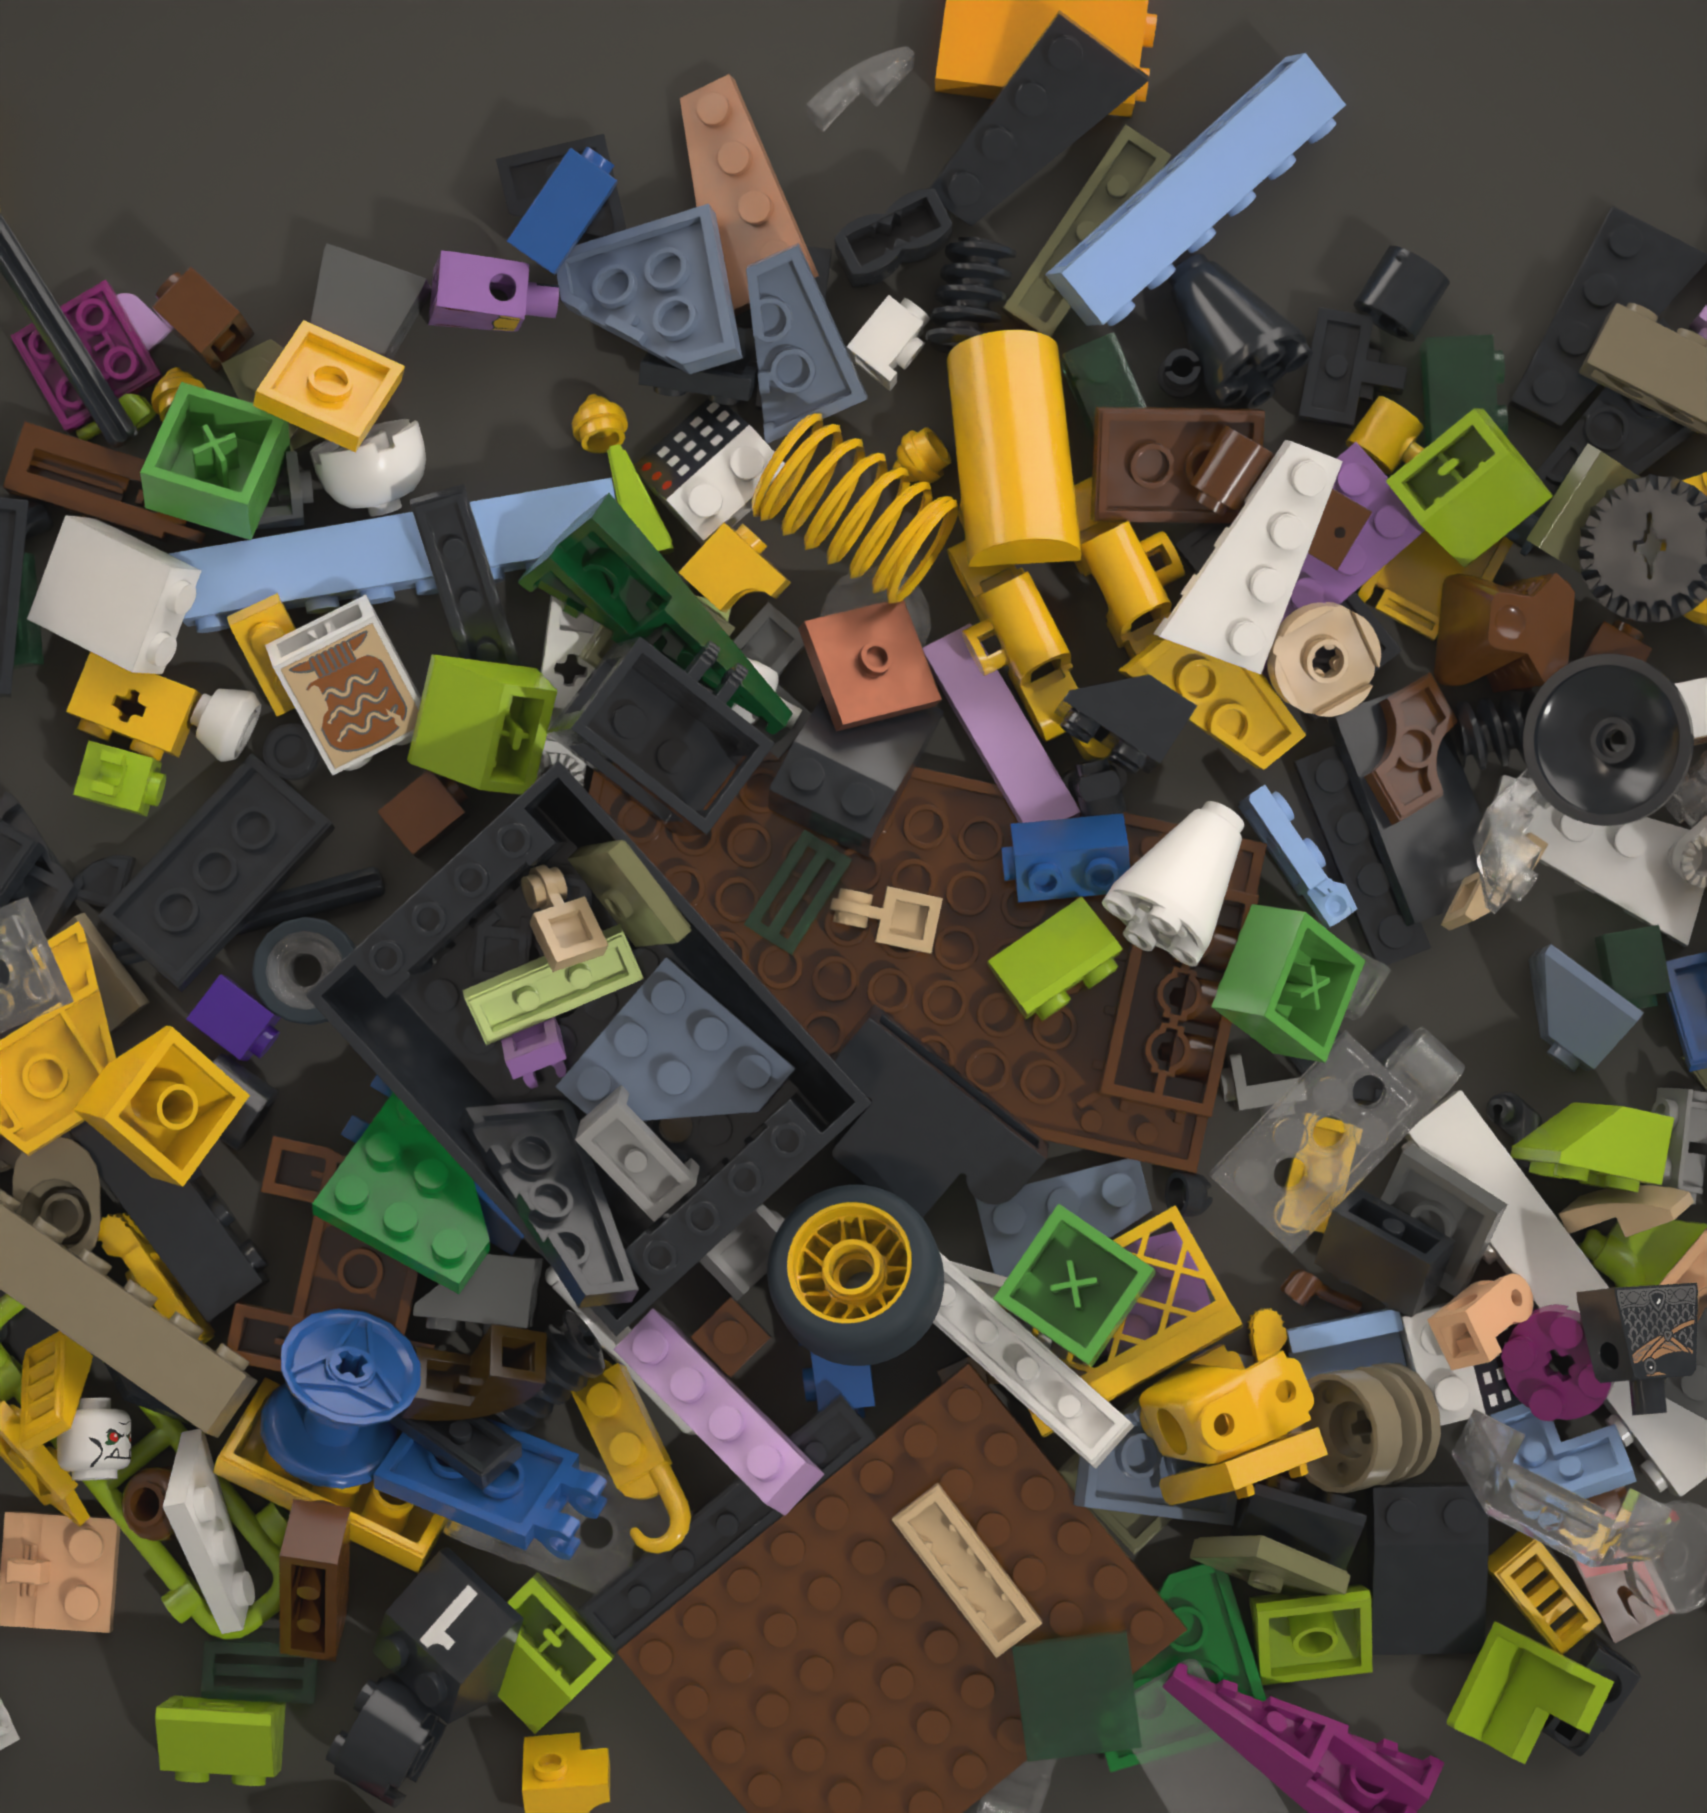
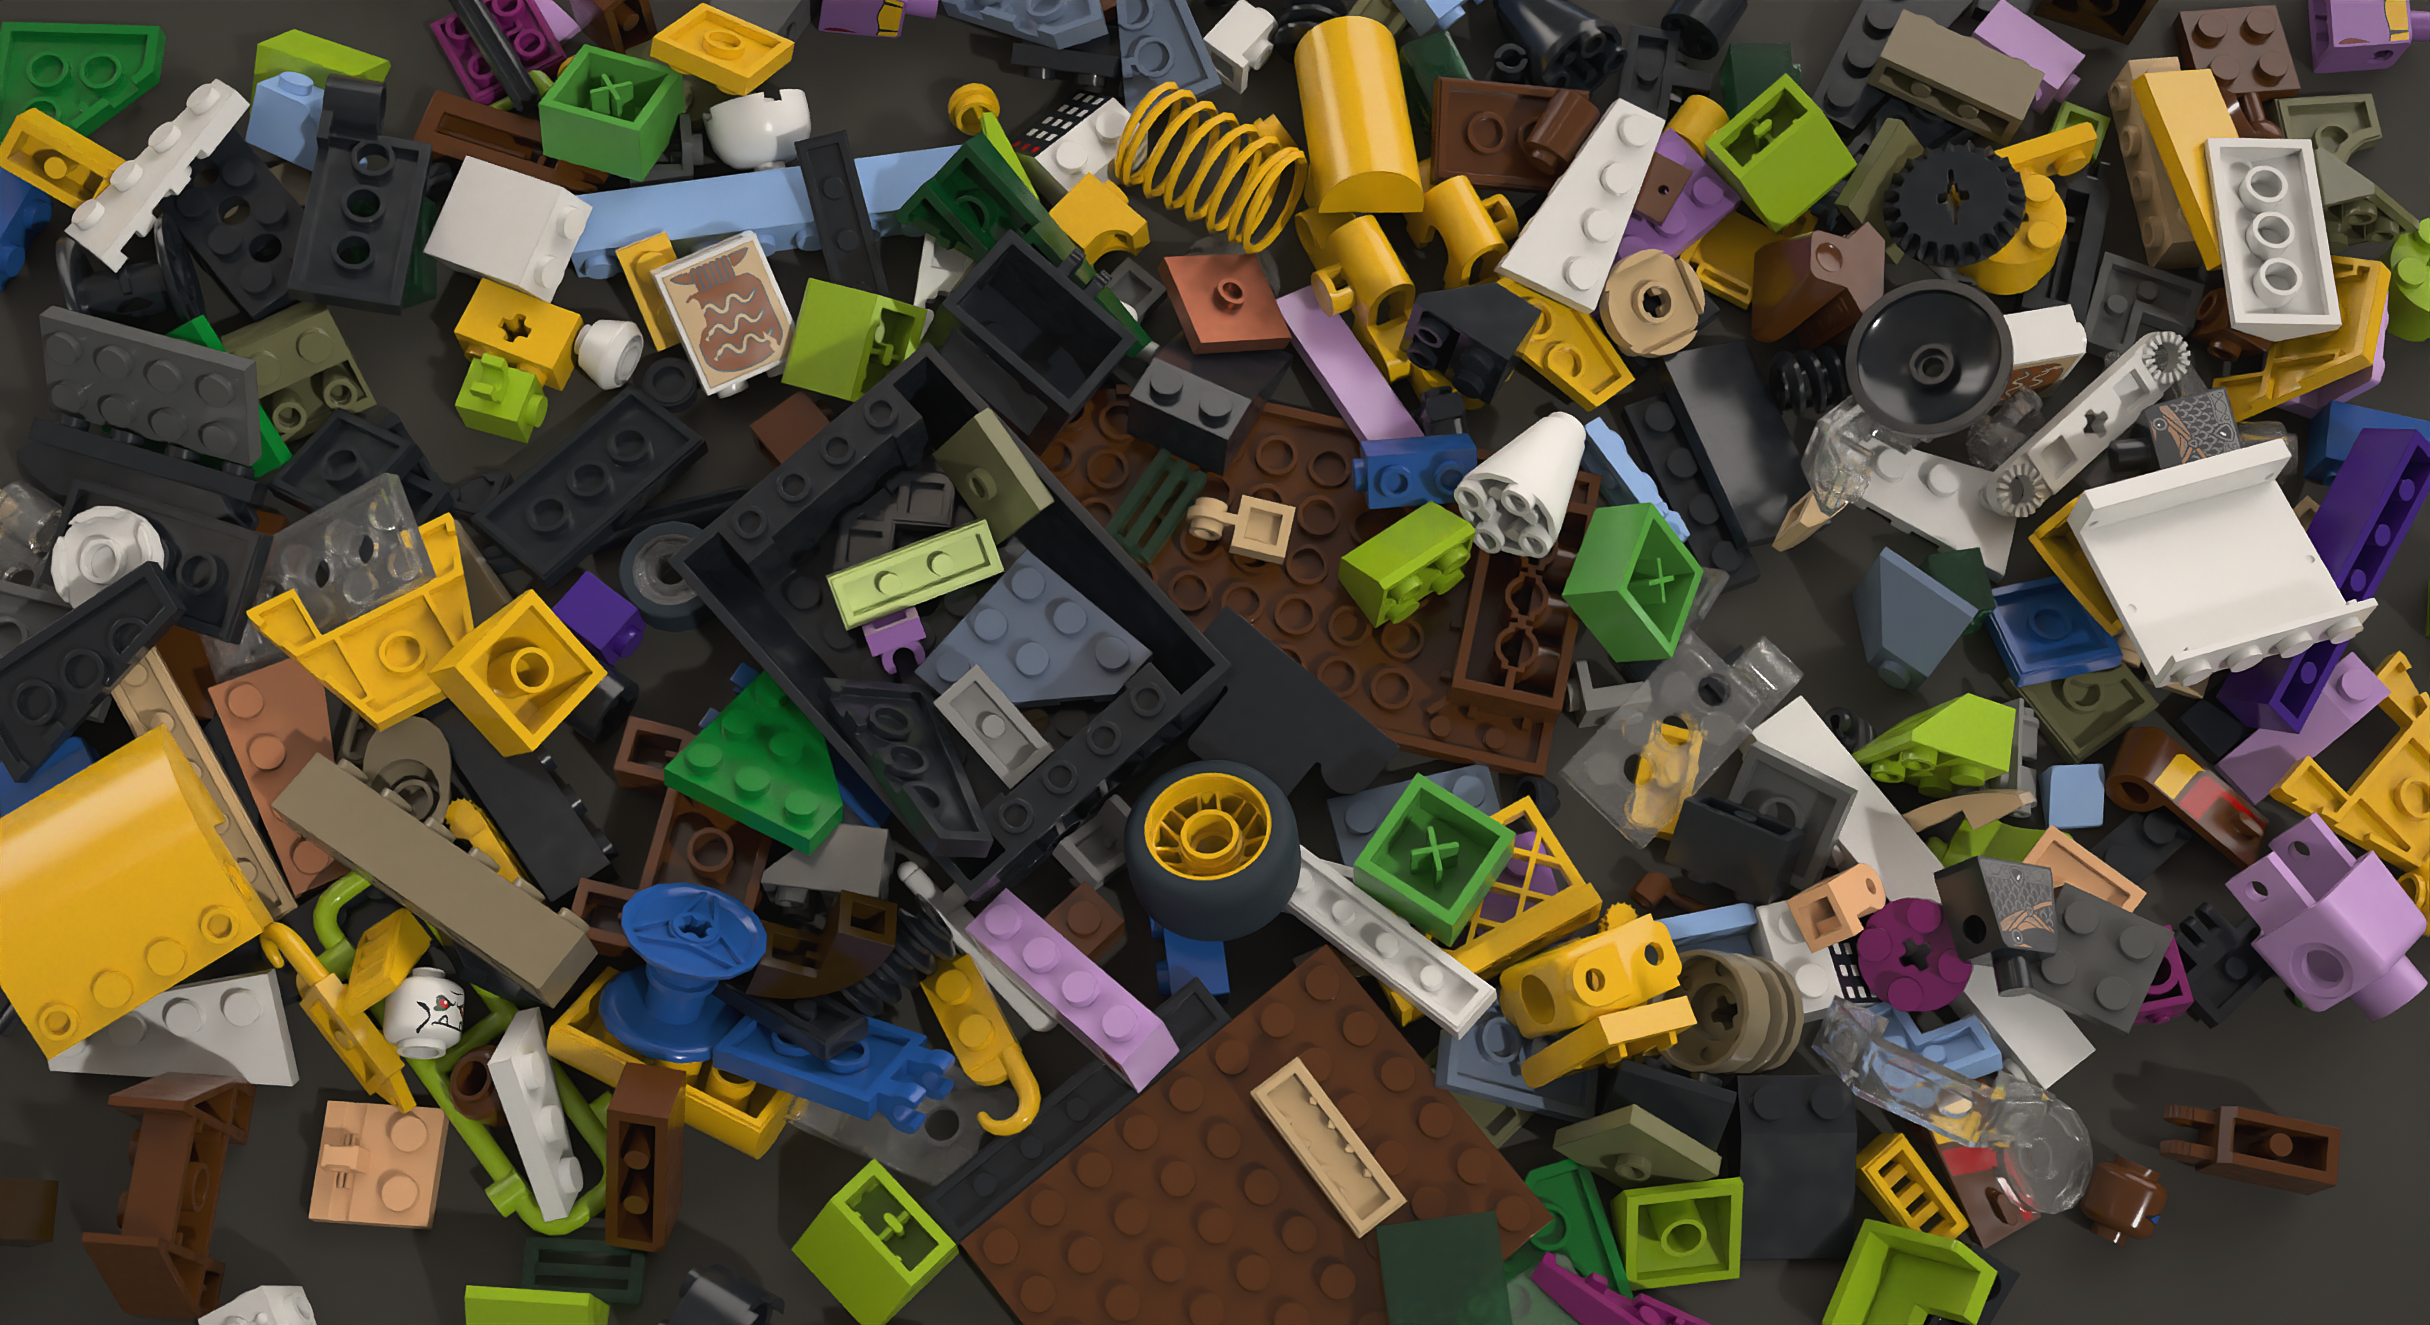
camera: 10 degrees left, 15 degrees down
(449, 1637) = (785, 1221): black slope -> none
(563, 930) = (926, 509): tan plate -> none
(1415, 727) = (1733, 408): reddish brown tile -> none

